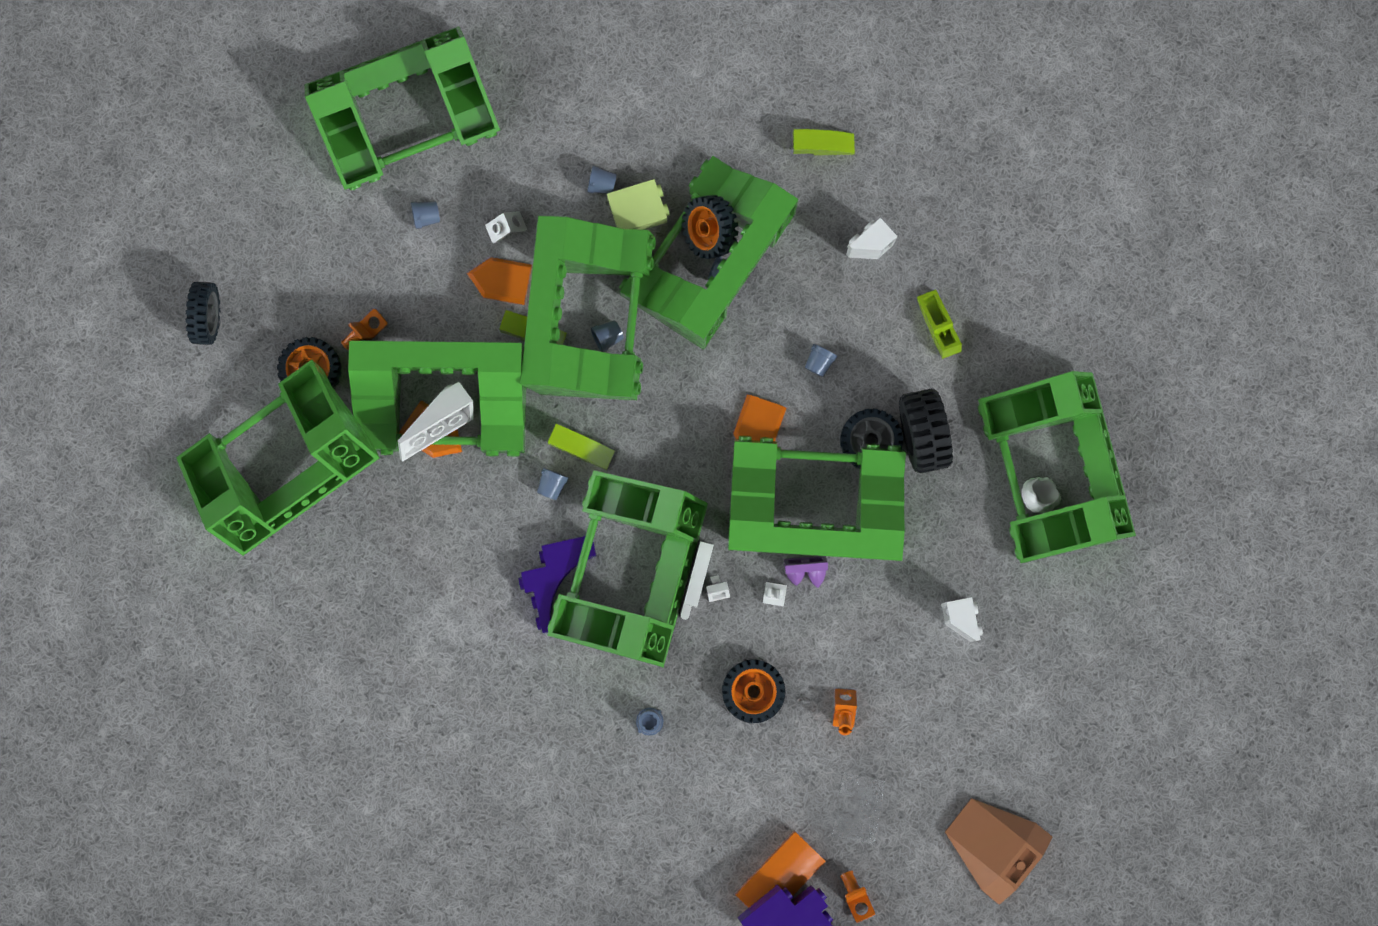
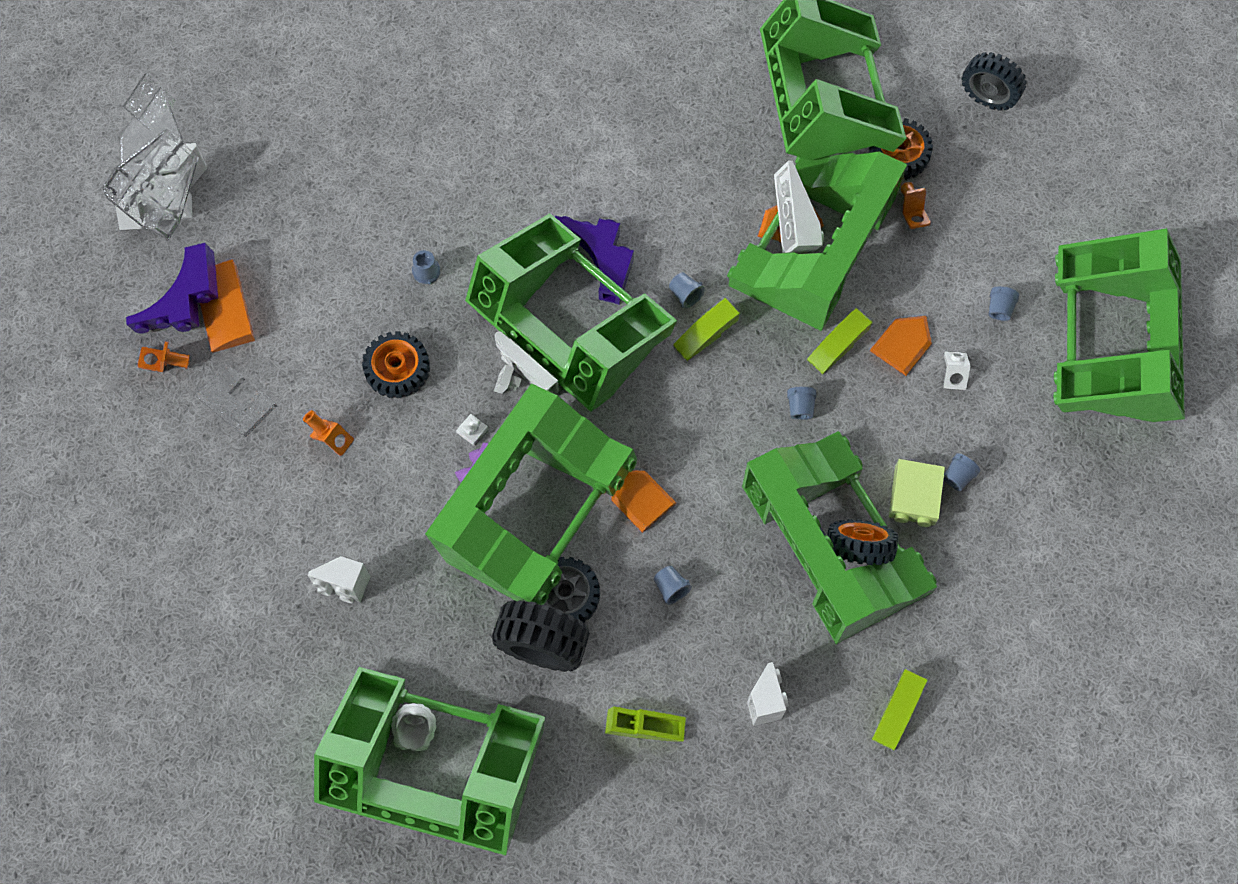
camera: 120 degrees right, 15 degrees down
(584, 248) = (789, 337): bright green brick -> none
(997, 847) = (119, 503): nougat wedge -> none

